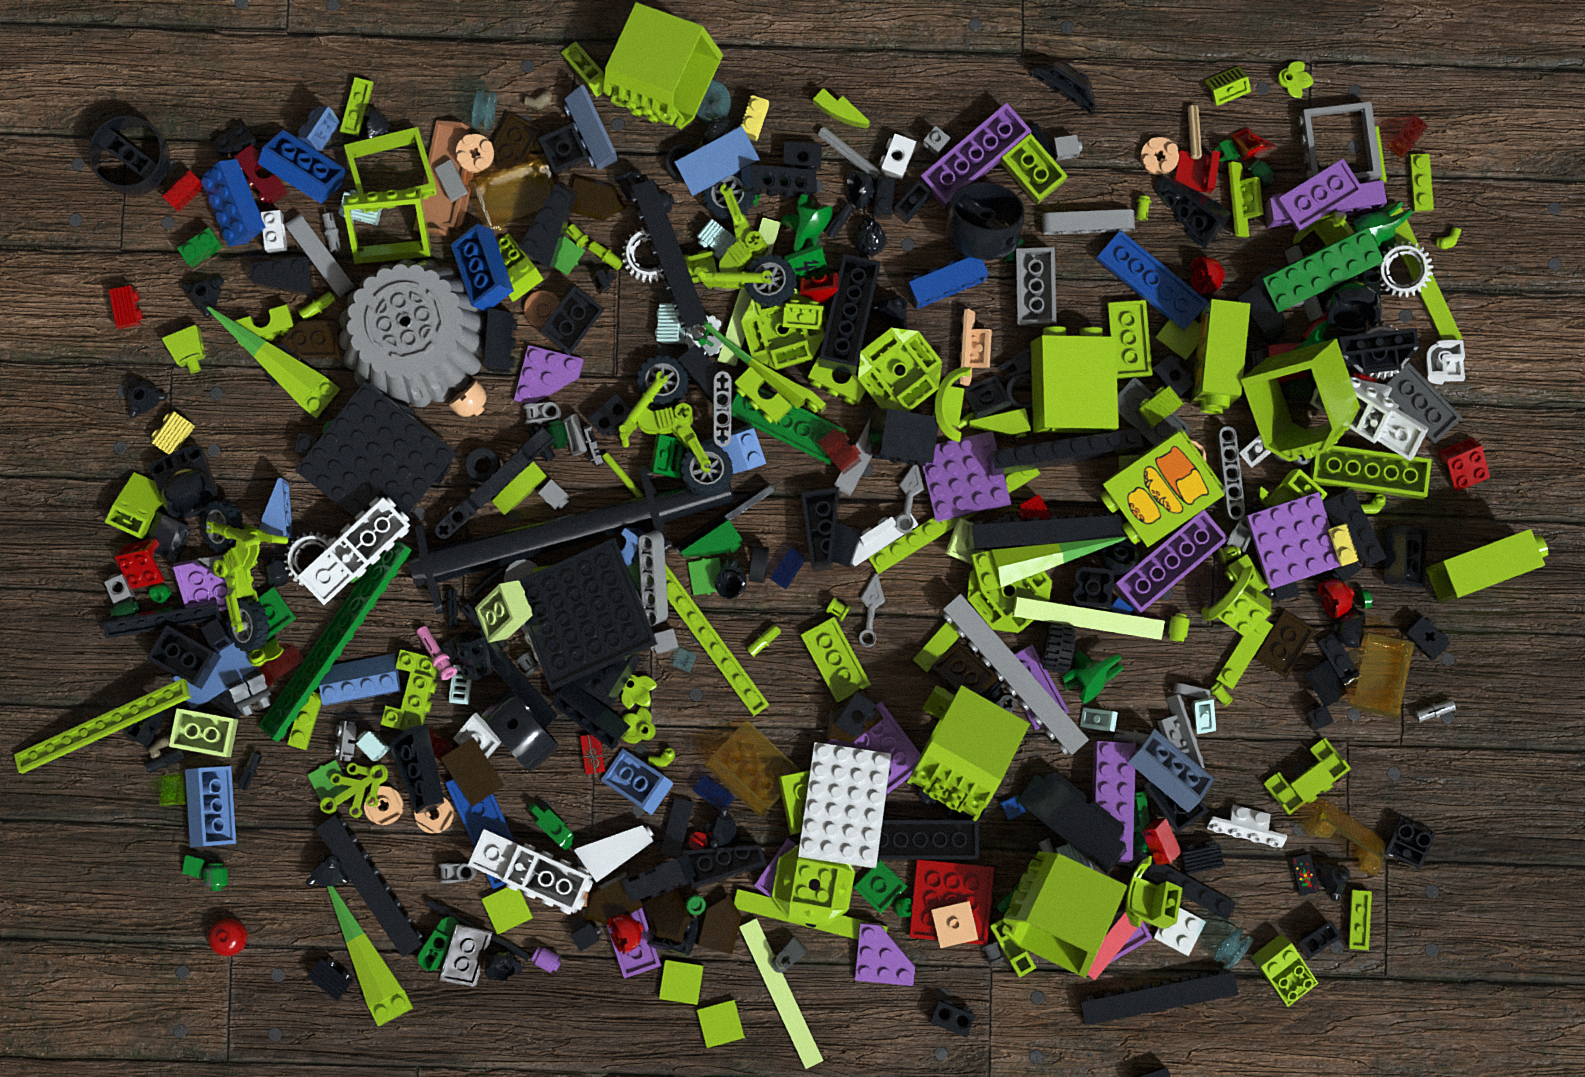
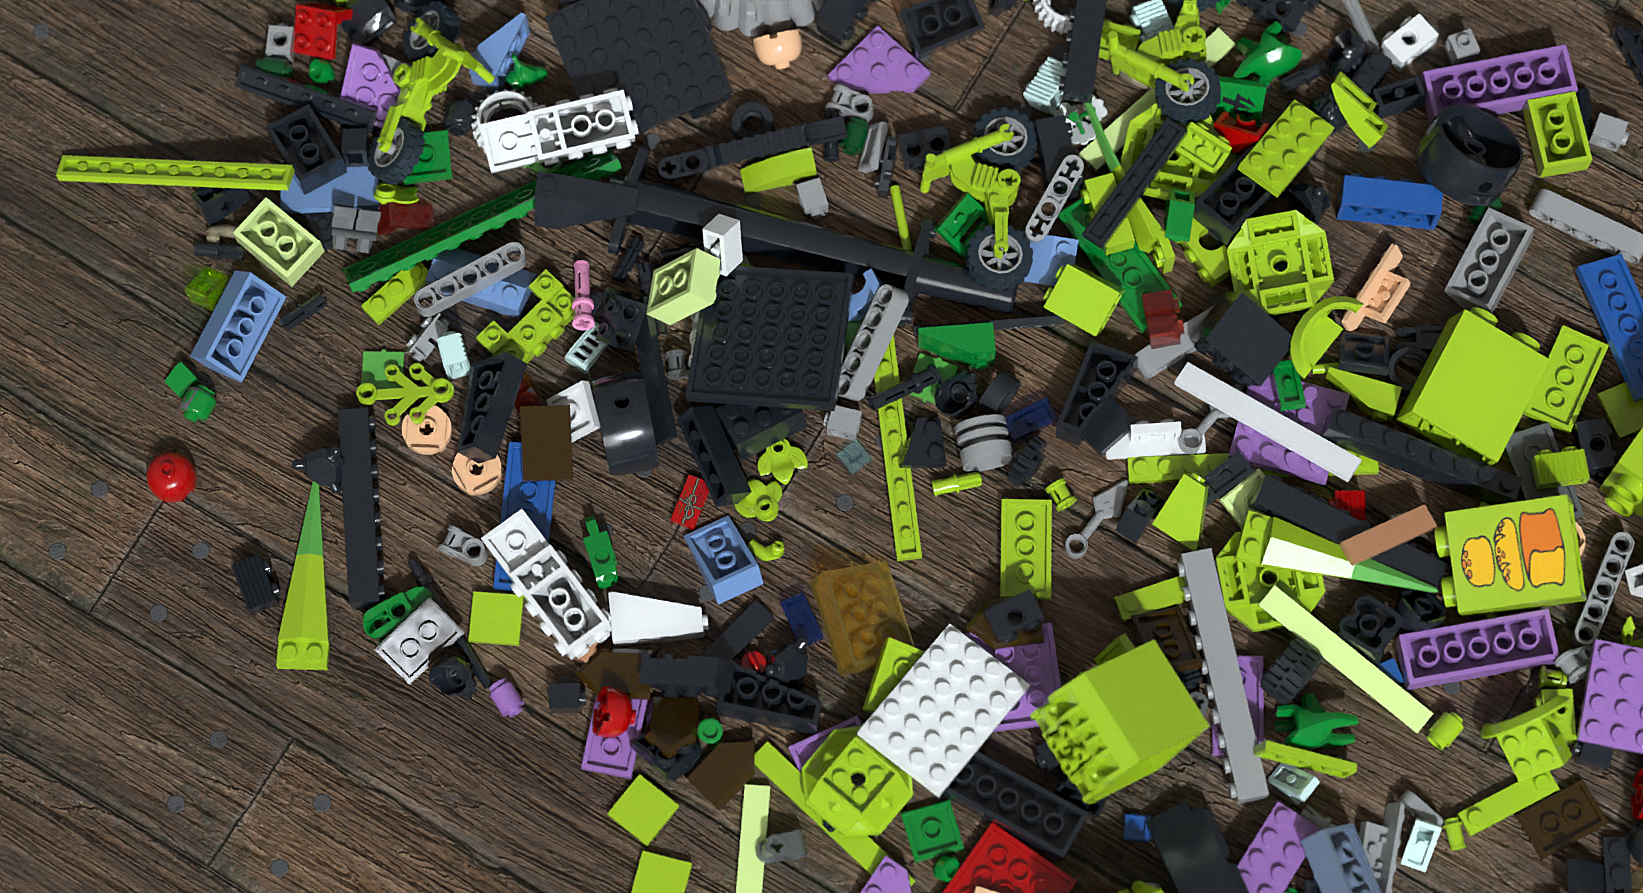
camera: 35 degrees right, 10 degrees down
(304, 516) = (525, 74): none -> green animal
(346, 694) = (464, 290): none -> light grey beam
(392, 596) = (574, 201): none -> black wedge
(514, 566) = (723, 241): none -> white brick
(697, 588) = (914, 383): none -> black pin
(728, 626) = (925, 445): none -> black wing
(767, 604) = (983, 443): none -> light grey wheel
(770, 366) = (1135, 183): none -> black tile
(779, 467) = (1083, 298): none -> lime slope
(804, 600) = (1027, 461): none -> black gear
(812, 373) = (1179, 215): none -> green slope
(858, 284) = (1286, 148): none -> lime plate
(891, 227) = (1358, 110): none -> lime slope
(898, 593) = (1139, 515): none -> black slope
(928, 576) = (1185, 511): none -> lime slope
(940, 540) = (1227, 475): none -> black plate
(949, 483) = (1268, 422): none -> white tile
(950, 451) = (1288, 386): none -> green plate
(1073, 519) = (1388, 535): none -> nougat tile
(1099, 702) = (1305, 759): none -> lime tile

